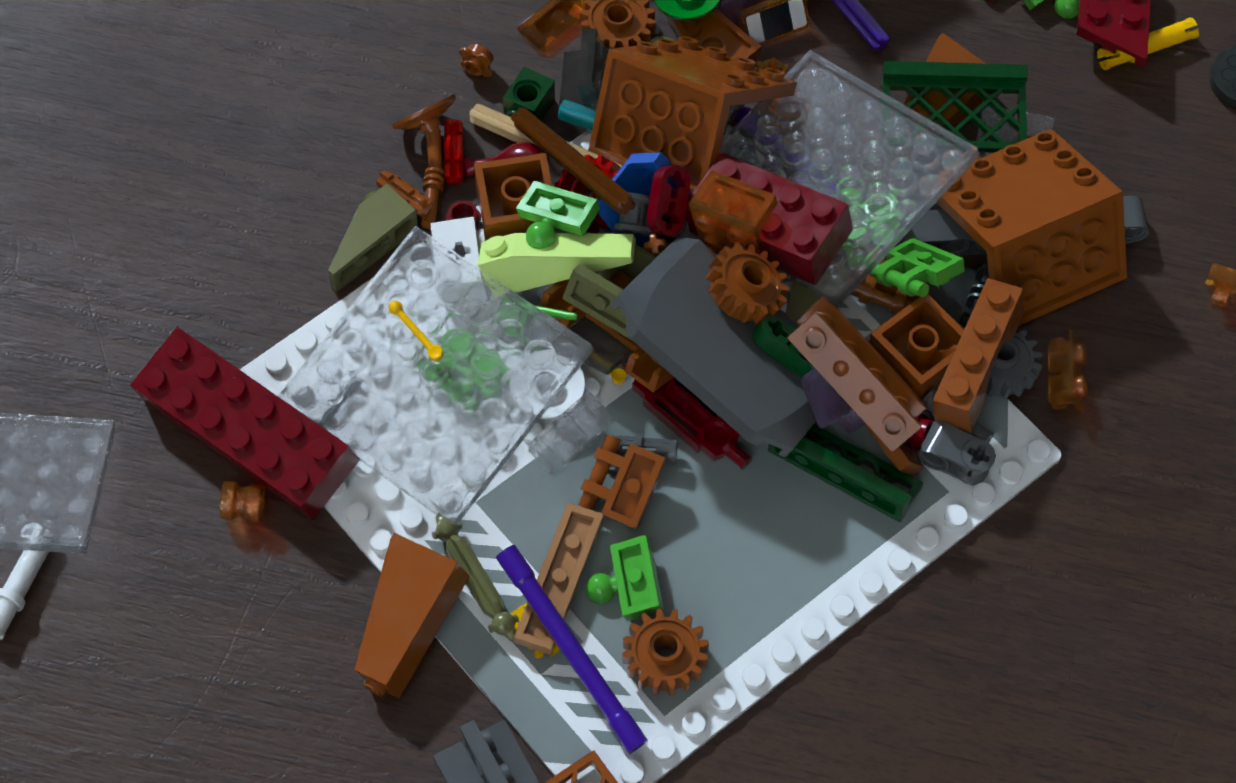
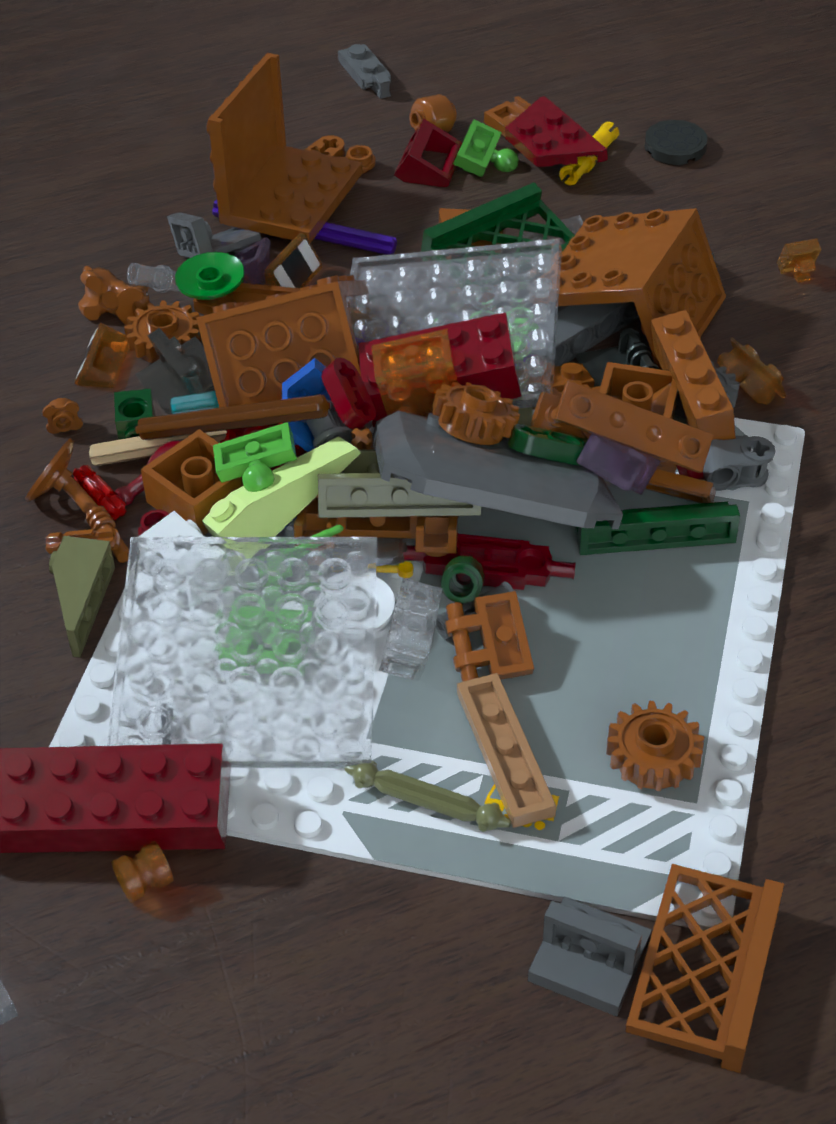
camera: 35 degrees left, 15 degrees down
(406, 613) = (394, 852): dark orange slope -> none
(434, 351) = (235, 625): yellow hinge -> none
(618, 718) = (667, 823): dark purple piece -> none
(633, 580) = (570, 707): bright green plate -> none
(640, 419) = (458, 590): none -> dark green brick
(920, 265) = (586, 351): bright green plate -> none

